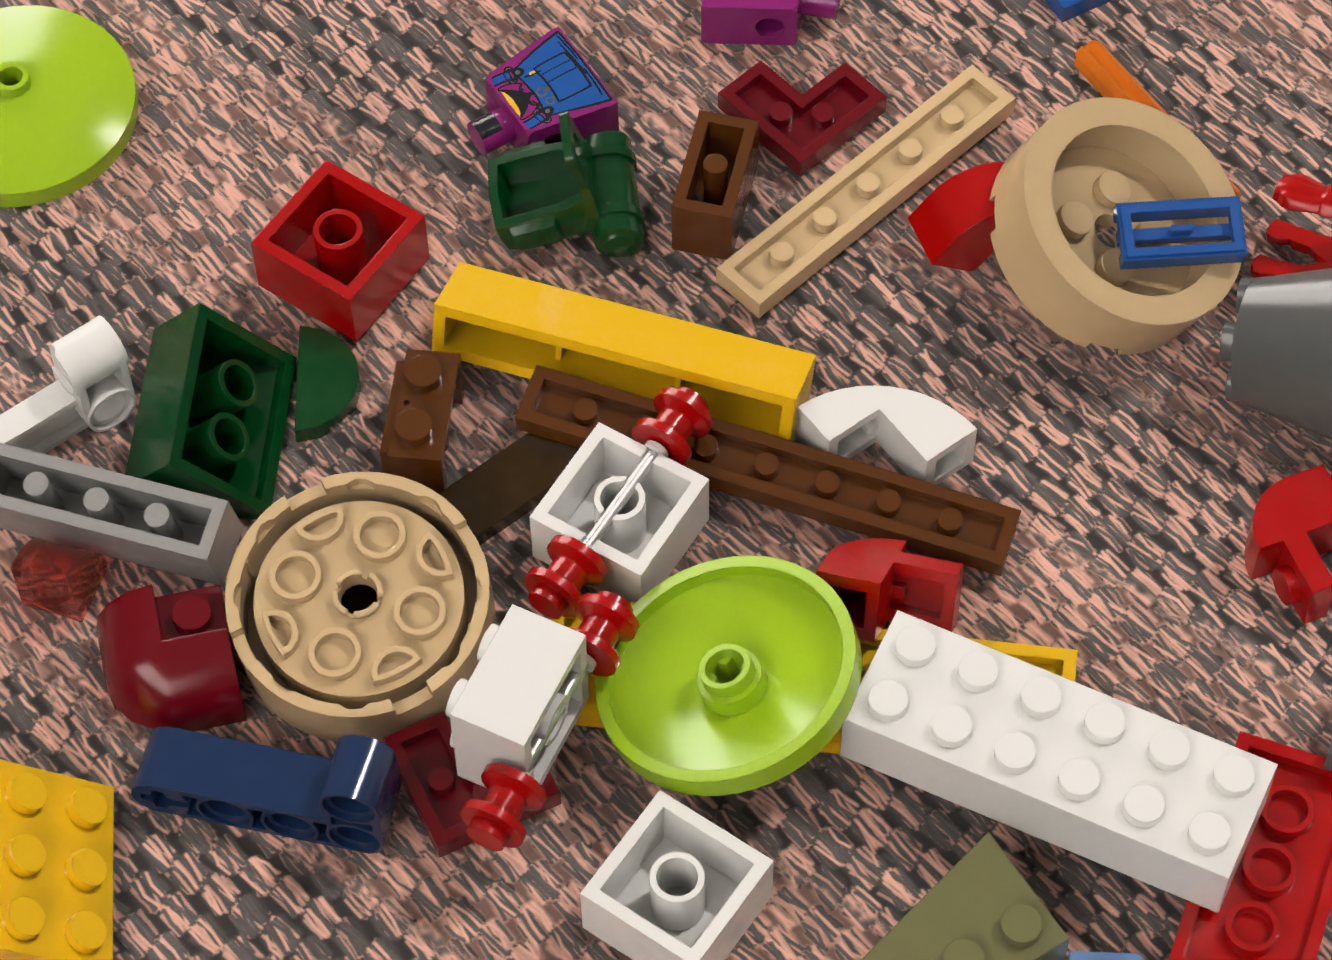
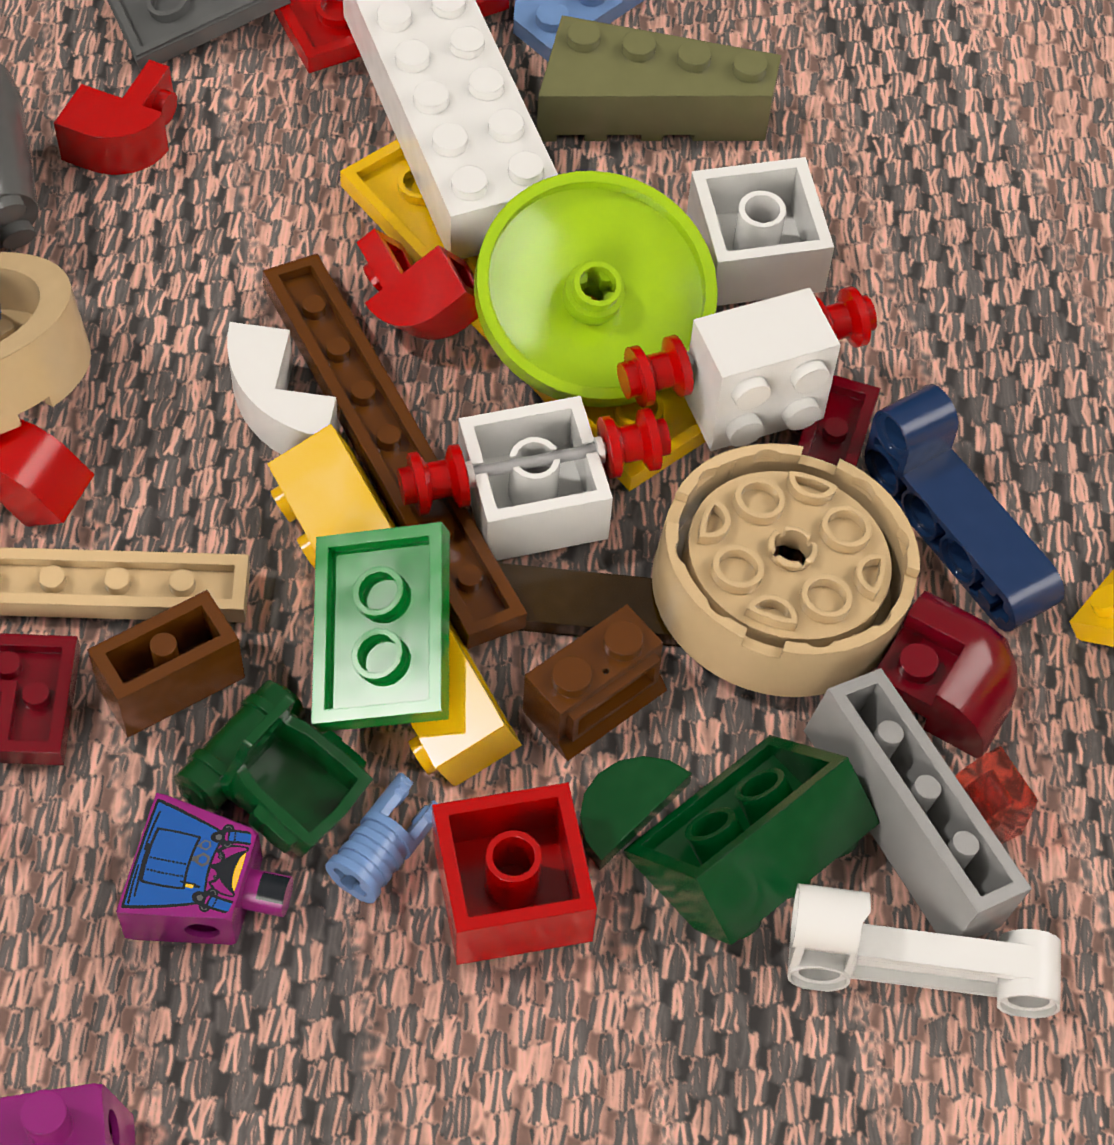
camera: 140 degrees left, 0 degrees up
(454, 216) = (379, 844): none -> medium blue hinge
(586, 290) = (381, 628): none -> plate

